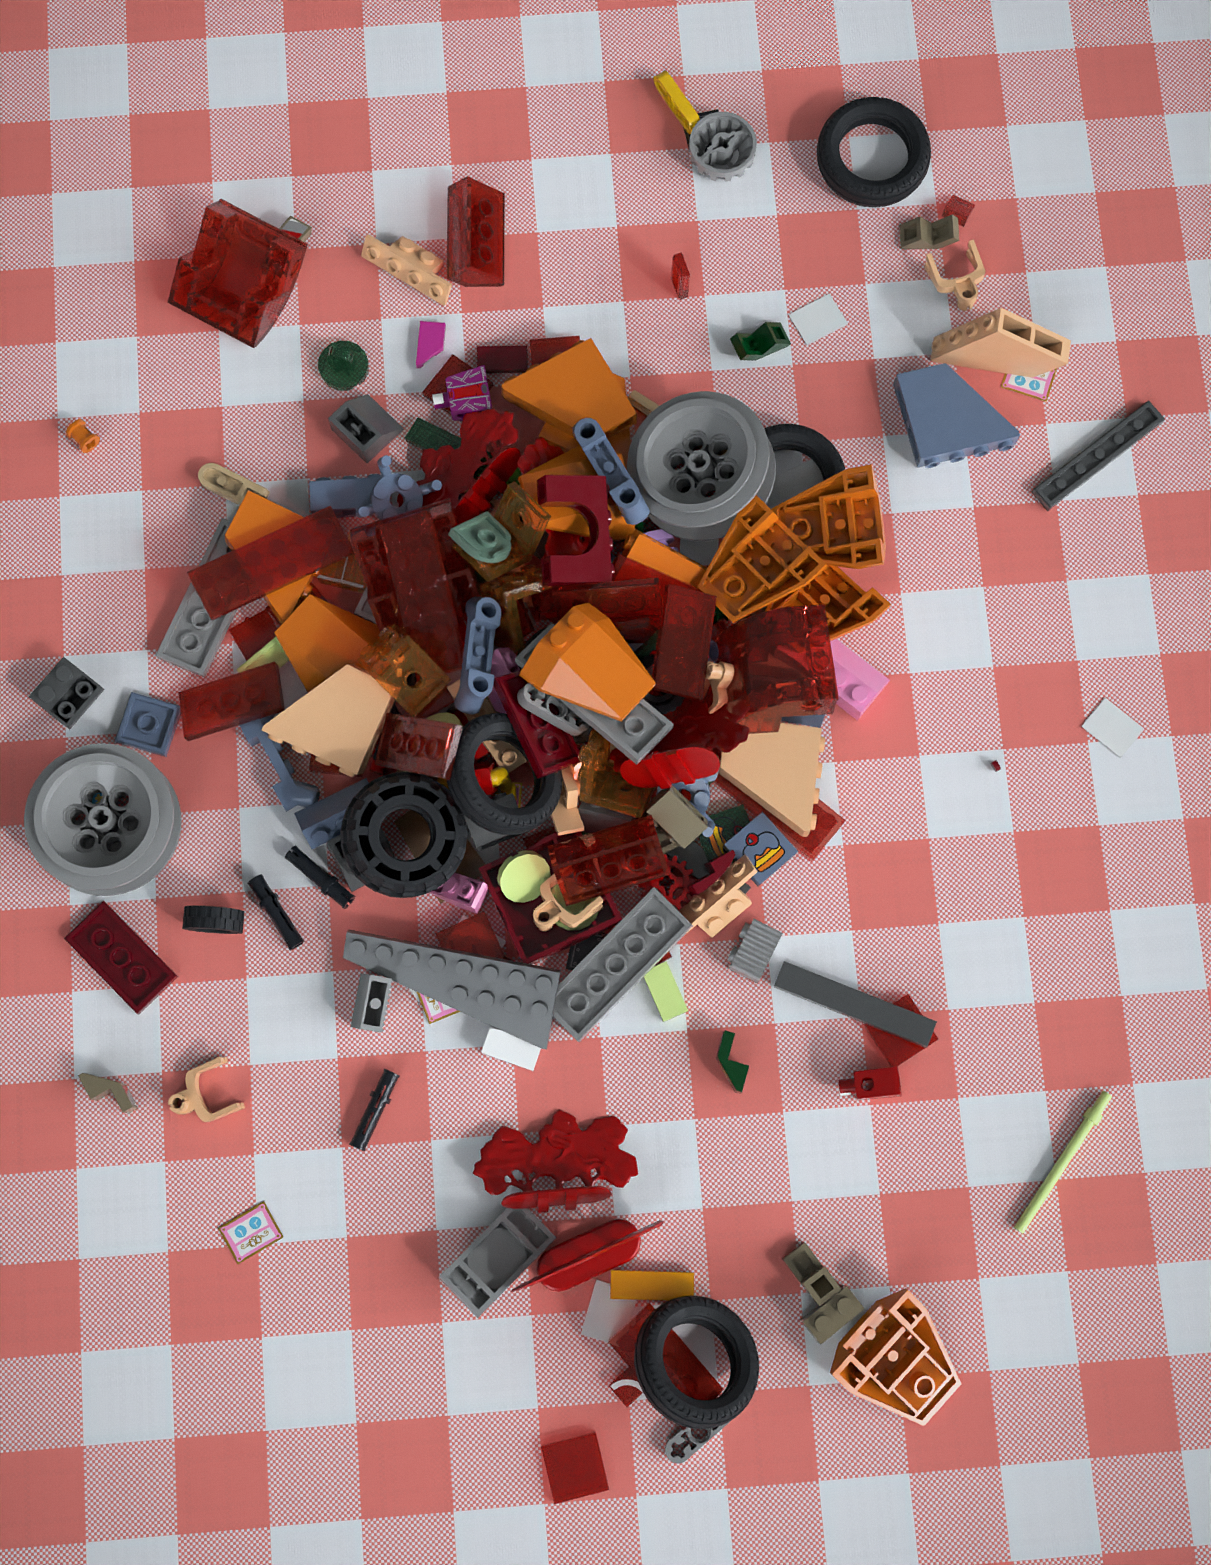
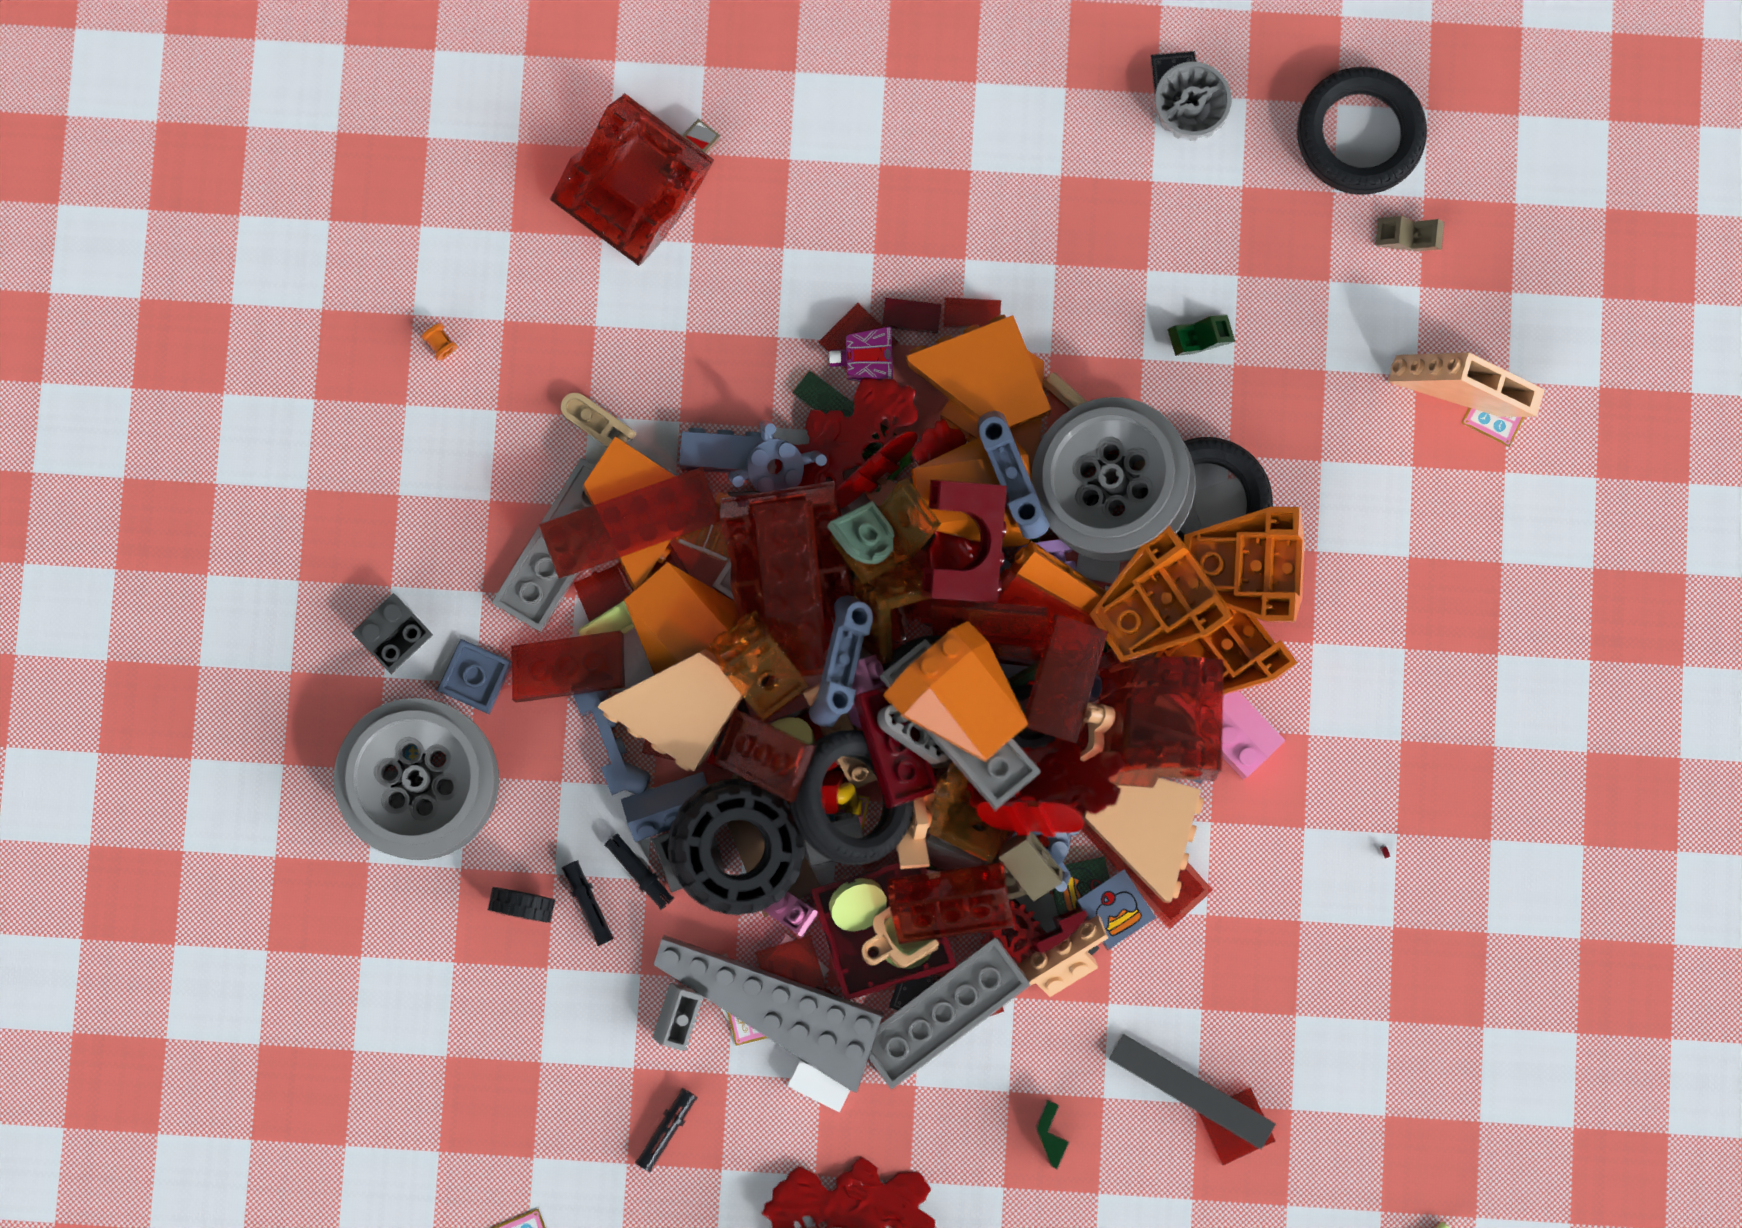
camera: 10 degrees right, 5 degrees up
(100, 1087) = (379, 1063): dark tan slope -> none
(121, 957) = (417, 927): dark red tile -> none
(192, 1097) = (477, 1090): light nougat piece -> none
(343, 365) = (735, 298): clear green tile -> none
(364, 426) = (751, 374): dark grey slope -> none
(409, 264) = (824, 191): light nougat bracket -> none
(430, 341) = (834, 284): dark pink tile -> none
(475, 234) = (901, 166): clear red slope -> none
(665, 992) = (991, 1048): yellowish green tile -> none
(676, 100) = (1149, 38): yellow beam -> none
(680, 276) = (1122, 250): clear red tile -> none
(755, 950) = (1093, 1017): light grey brick -> none
(818, 319) = (1270, 316): white sticker -> none
(885, 1080) = (1211, 1180): red torso -> none
(948, 417) = (1396, 453): sand blue slope -> none
(959, 208) = (1447, 209): clear red slope -> none
(963, 287) = (1435, 303): light nougat piece -> none
(1098, 455) = (1556, 518): dark grey tile -> none
(1113, 727) = (1520, 827): white sticker -> none

